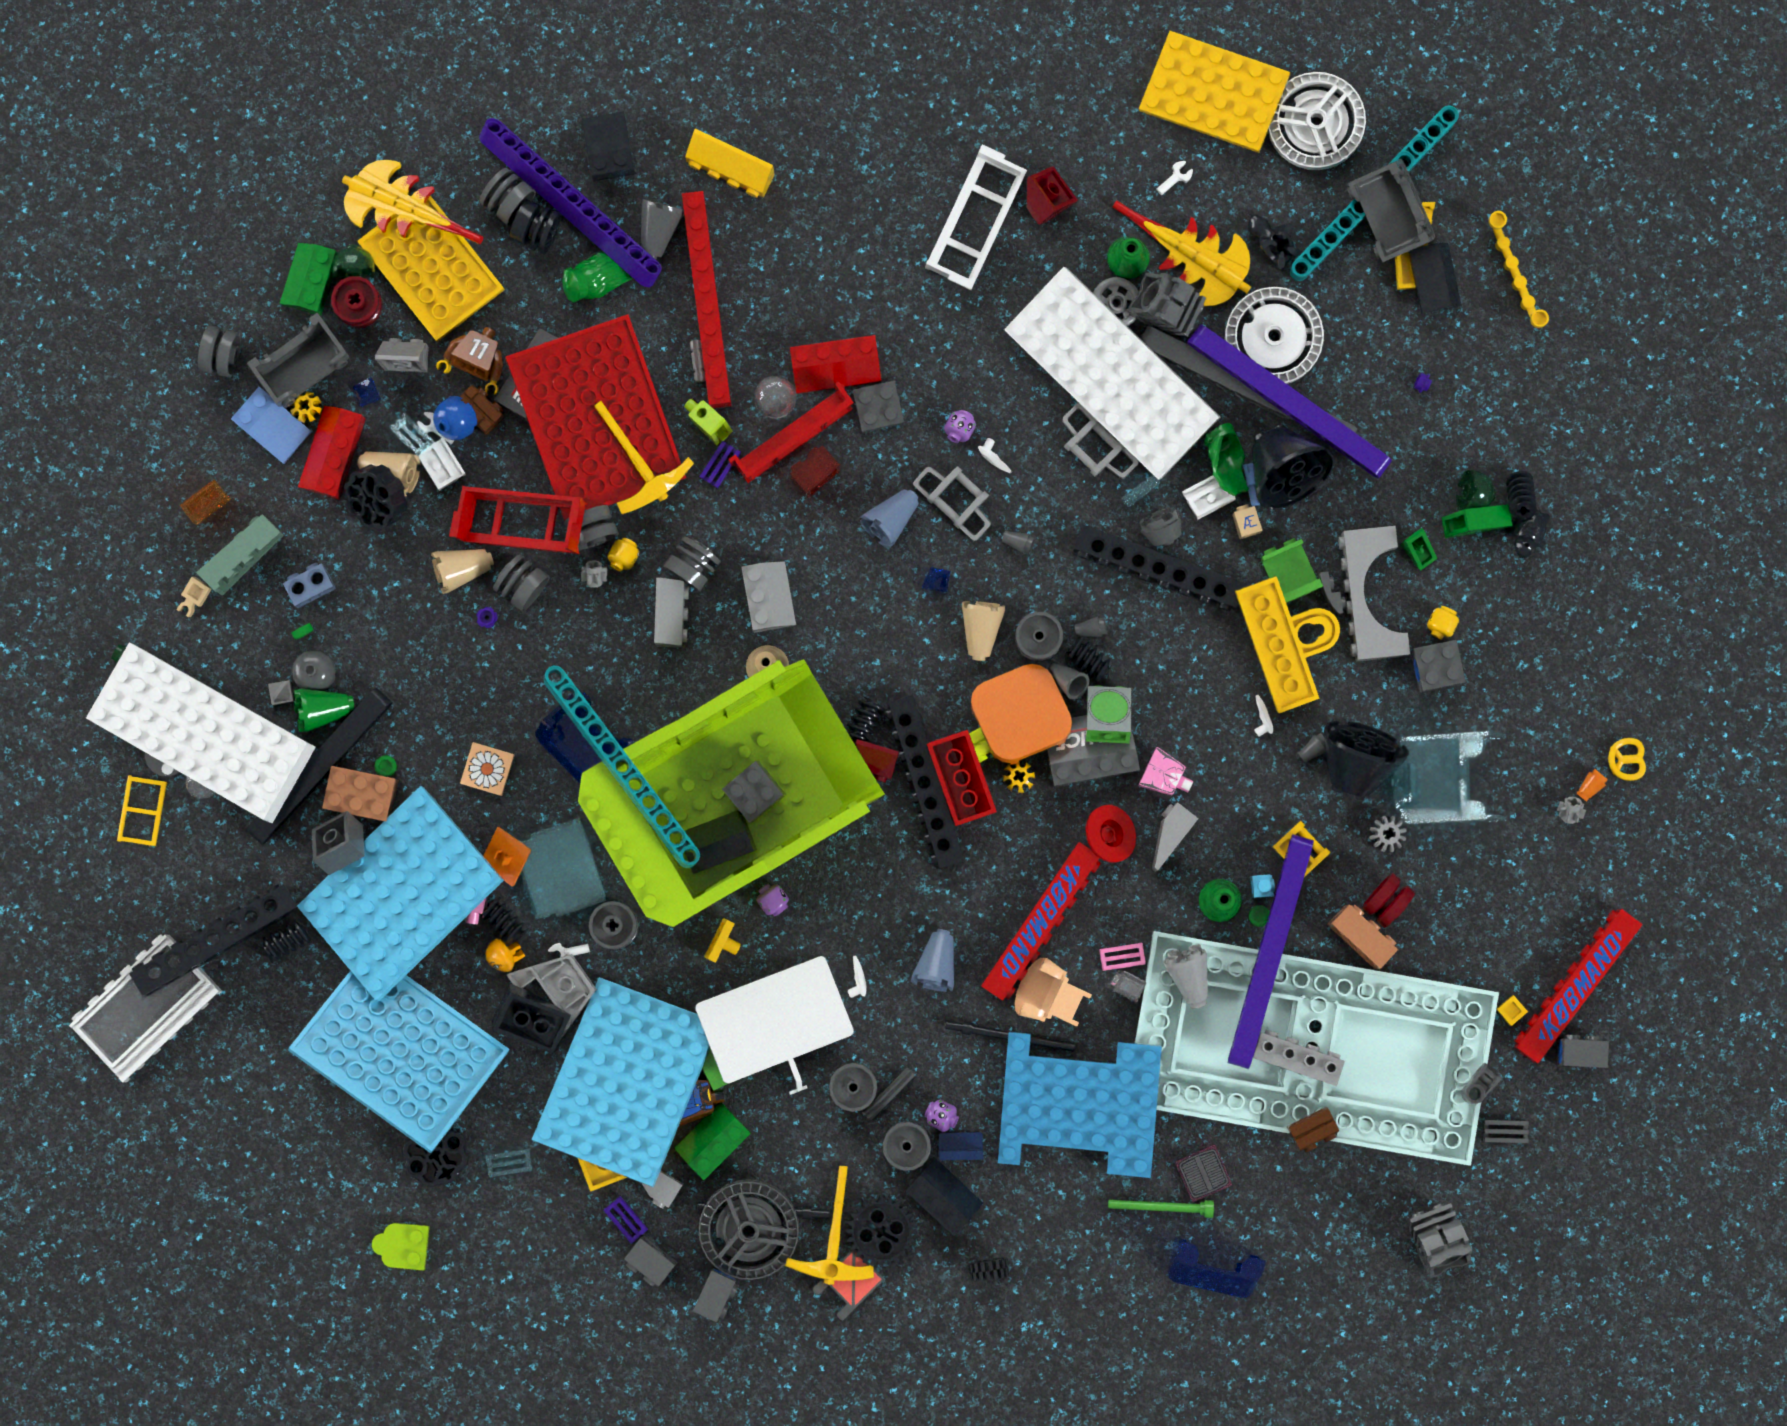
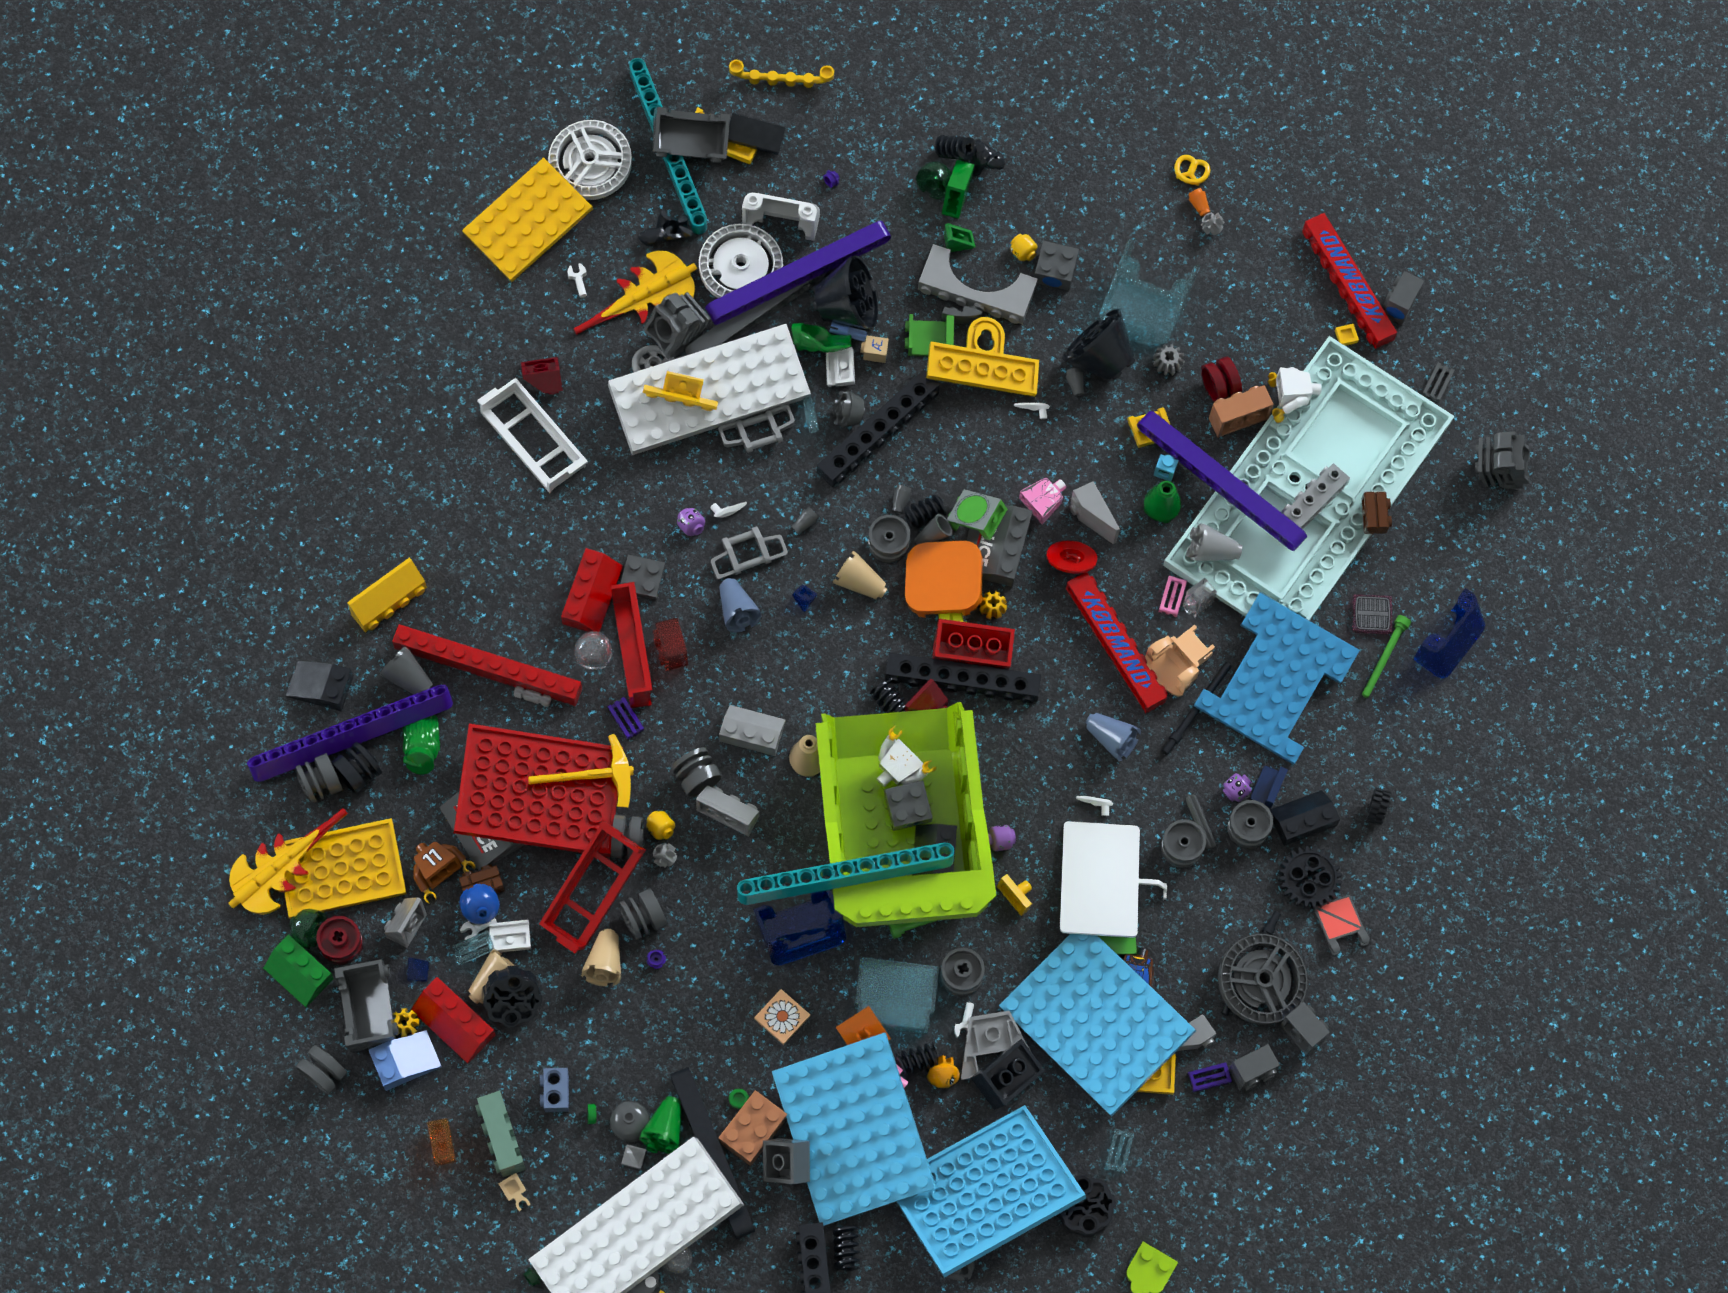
camera: 70 degrees left, 15 degrees down
(708, 421) = (586, 707): lime torso -> none
(712, 1141) = (1177, 975): green slope -> none
(793, 763) = (900, 762): none -> white torso
(830, 1268) = (1323, 930): yellow piece -> none
(1088, 347) = (683, 389): none -> yellow bracket
(1128, 264) = (622, 338): green cone -> none
(1258, 915) = (1188, 481): green tile -> none
(1367, 374) = (758, 205): none -> white windscreen
(1411, 982) = (1293, 390): none -> white torso
(1481, 1084) = (1393, 376): dark grey piece -> none

